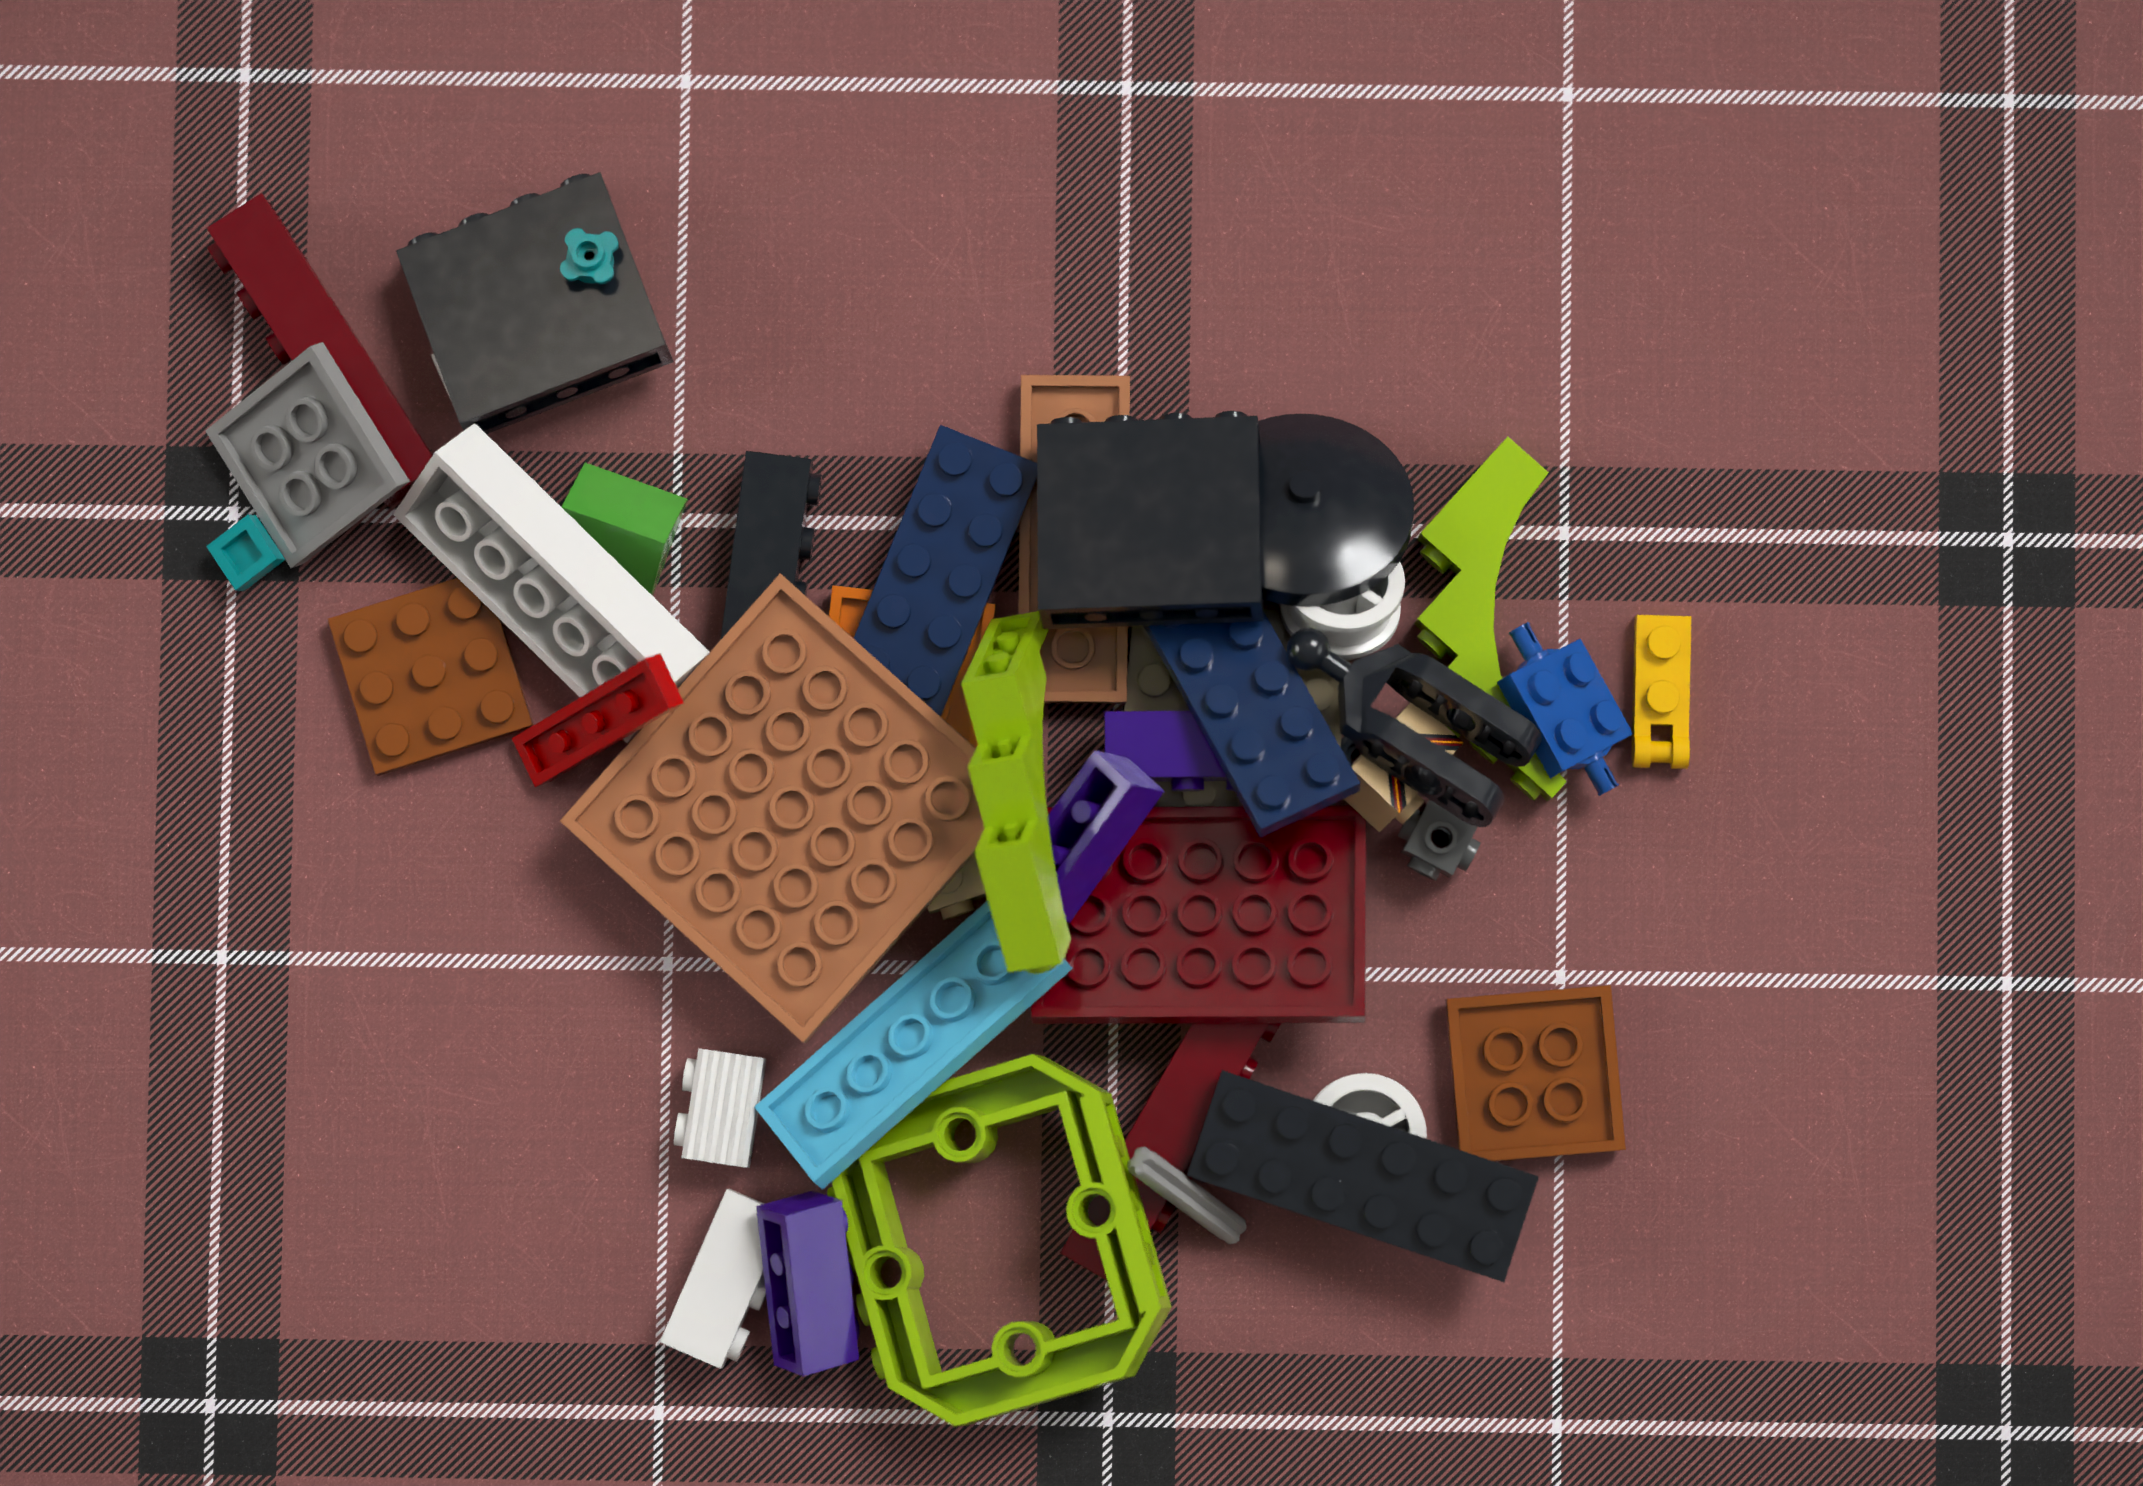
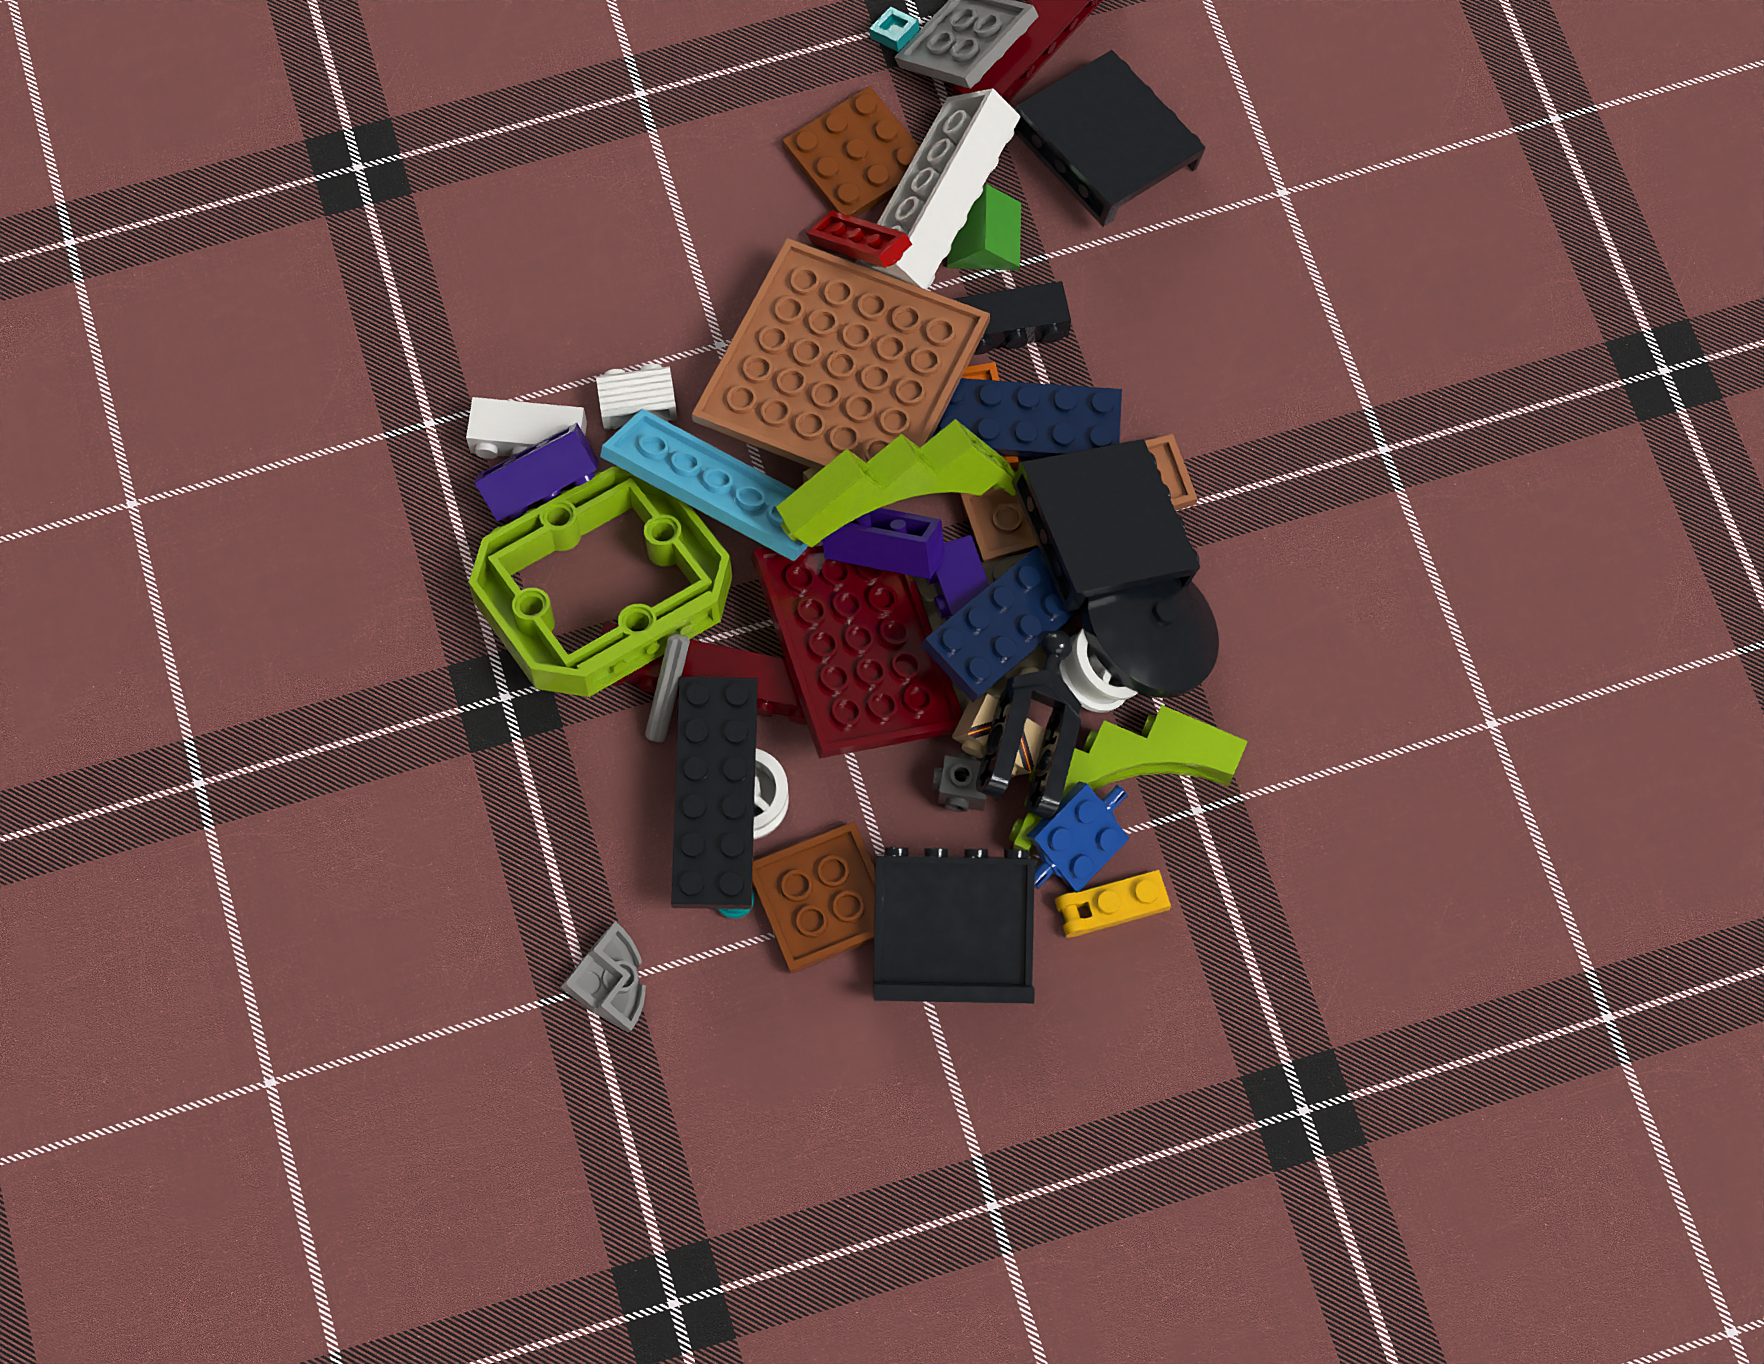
camera: 70 degrees right, 15 degrees down
(598, 269) = (1149, 148): teal plate -> none
(1557, 1392) = (609, 979): none -> light grey brick
(1643, 916) = (954, 926): none -> black panel

